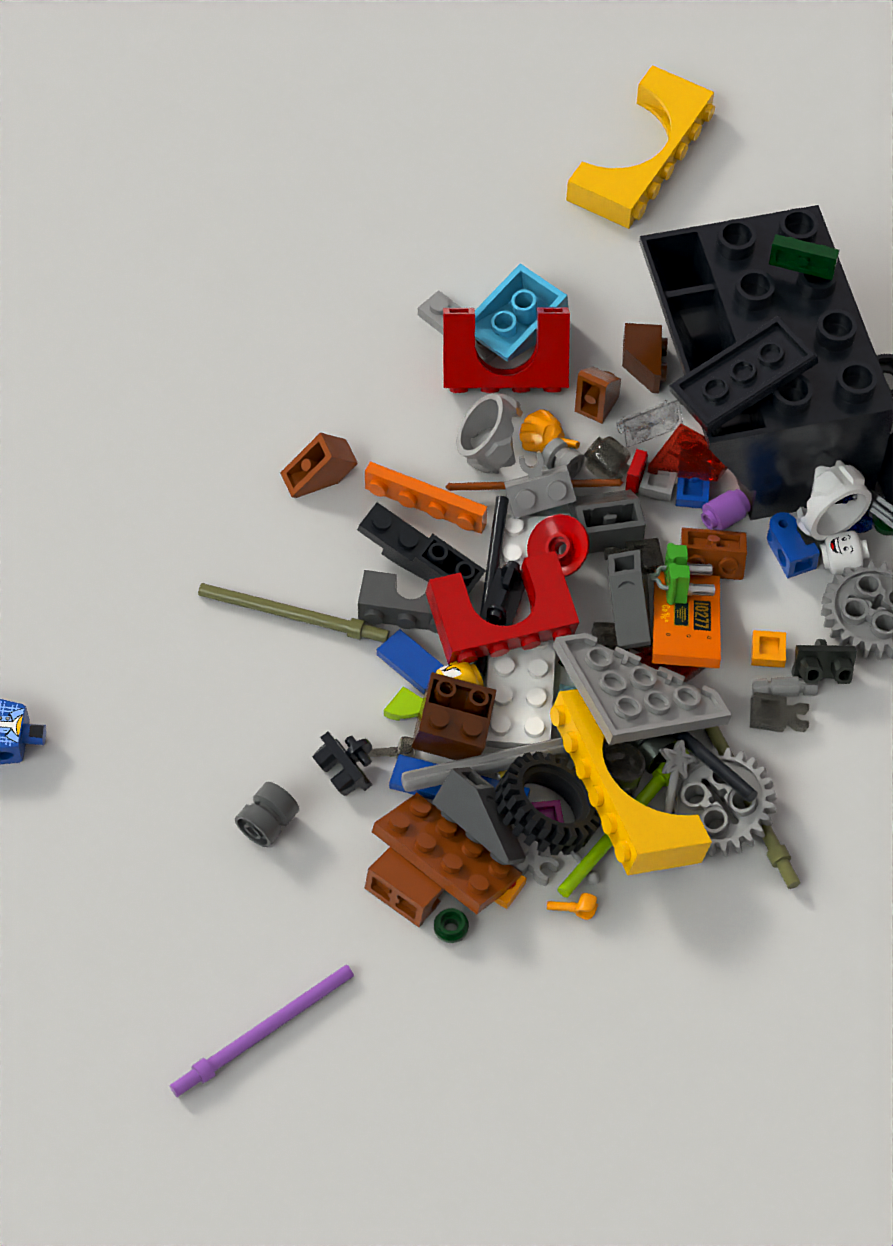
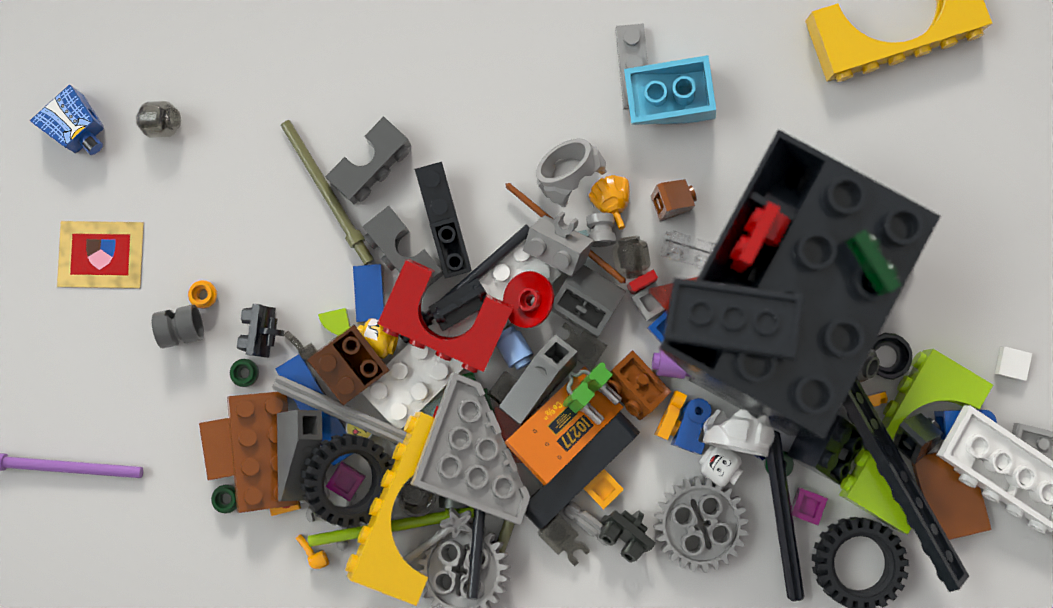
camera: 45 degrees right, 25 degrees up
(81, 667) = (158, 119): none -> clear smoke head
(128, 825) = (100, 254): none -> sticker
(256, 770) = (194, 292): none -> light orange plate
(309, 580) = (356, 180): none -> dark grey arch
(319, 465) = (438, 97): dark orange slope -> none
(359, 802) = (235, 372): none -> dark green plate
(425, 497) = (478, 171): orange plate -> none
(544, 369) = (601, 107): red arch -> none
(588, 602) = (514, 348): none -> light blue brick
(643, 353) = (729, 193): reddish brown slope -> none
(700, 315) = (764, 227): none -> red plate
(736, 662) = (580, 470): none -> black beam
(767, 555) = (669, 424): none -> light orange plate

